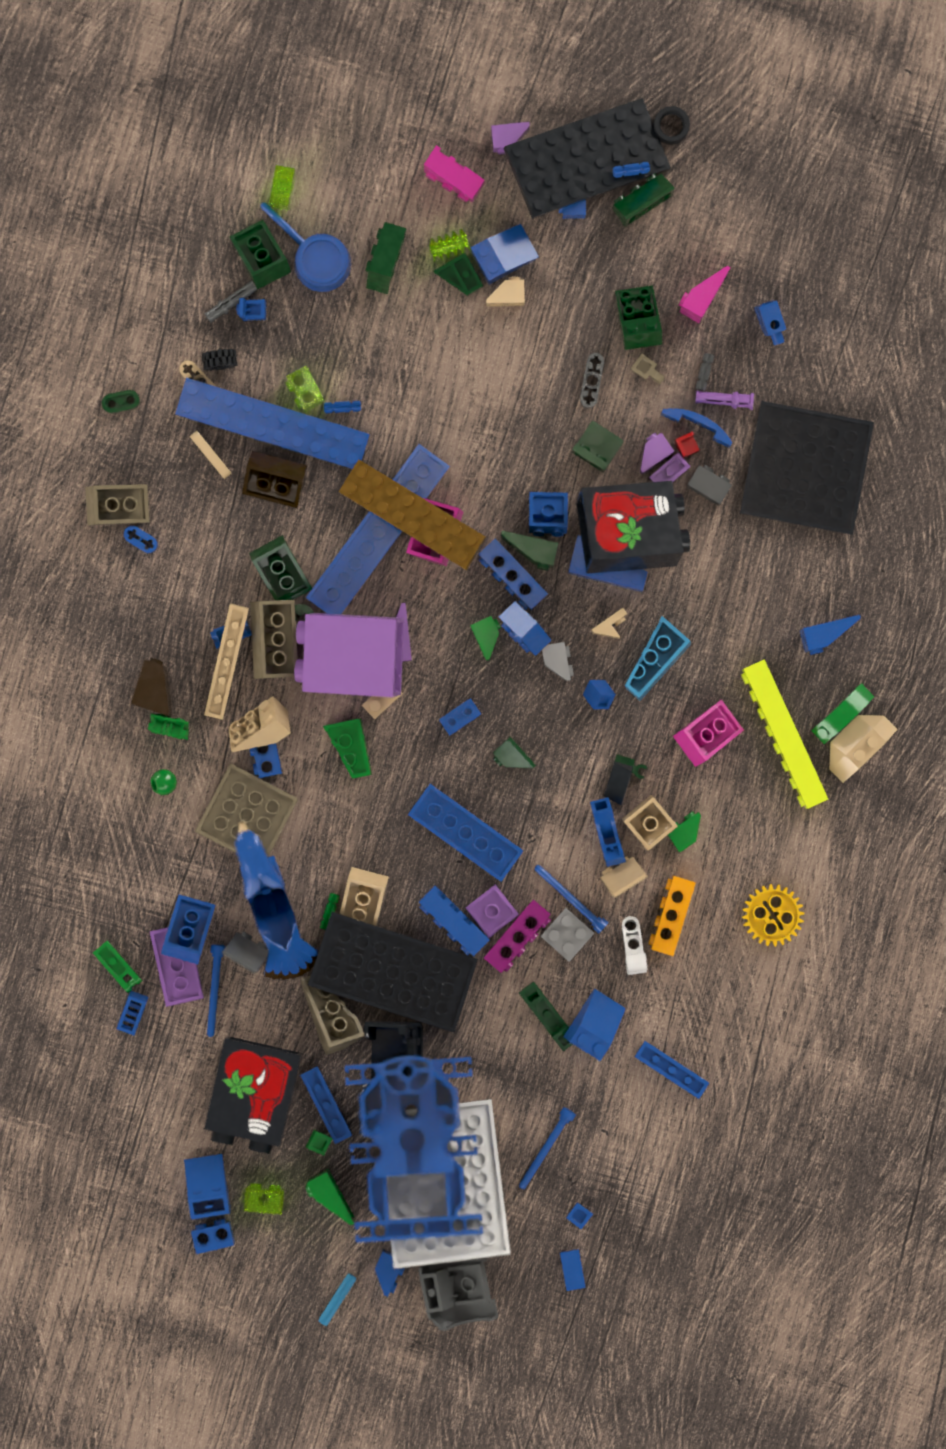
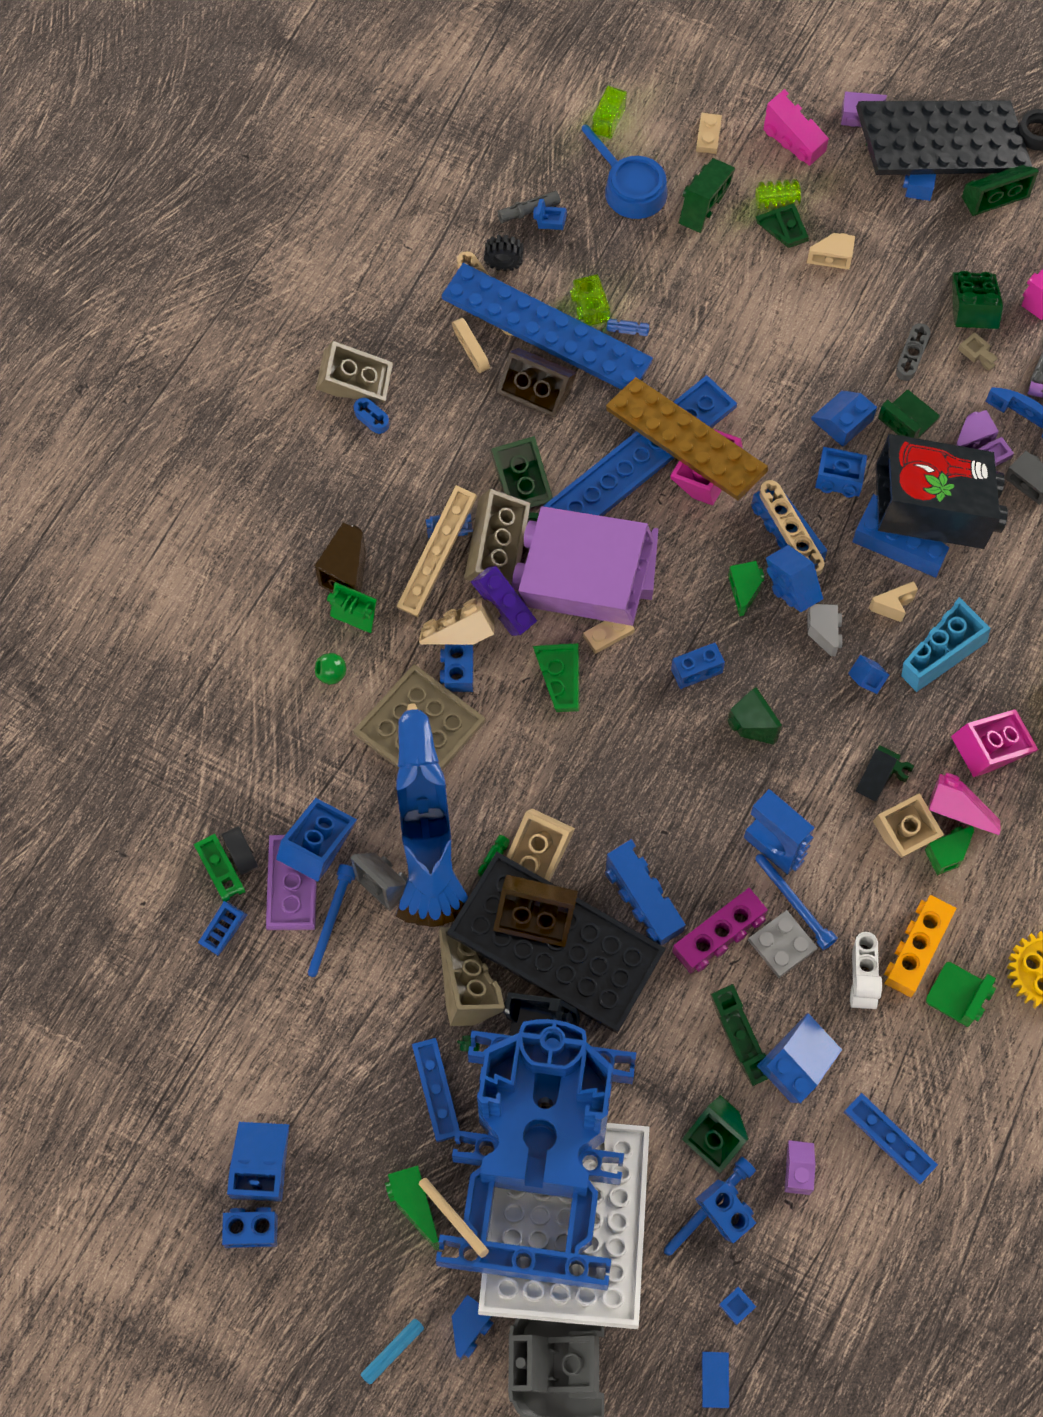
camera: 15 degrees right, 20 degrees down
(120, 400) = (385, 277): dark green plate -> none
(130, 952) = (239, 850): none -> black tyre
(252, 1094) = (346, 1051): brick -> none
(254, 1204) = (338, 1204): clear neon green brick -> none
(260, 254) = (572, 169): dark green slope -> none
(291, 697) = (496, 589): none -> dark purple arch
(318, 1142) = (416, 1133): green tile -> none
(341, 1063) = (466, 1042): none -> dark green plate
(362, 1208) = (453, 1217): none -> tan bar
(372, 955) = (535, 910): none -> dark brown slope
(376, 188) = (708, 133): none -> tan plate
(465, 832) = (679, 798): blue plate -> none
(492, 911) = (694, 896): medium lavender tile -> none
(504, 253) = (834, 212): blue slope -> none
(511, 572) = (789, 517): none -> tan beam
(536, 550) = (816, 498): dark green slope -> none
(542, 457) = (845, 416): none -> blue slope
(543, 1094) = (717, 1134): none -> dark green slope
(549, 857) = (779, 832): none -> blue arch
(557, 1153) = (722, 1214): none -> blue brick
(607, 832) = (853, 827): blue arch -> none
(608, 1105) = (800, 1168): none -> medium lavender slope
(623, 876) = (867, 884): tan slope -> none
(631, 169) = (991, 152): blue axle -> none
(686, 445) = (1011, 430): red panel -> none
(690, 797) = (958, 802): none -> dark pink slope
(708, 947) = (960, 994): none -> green bracket

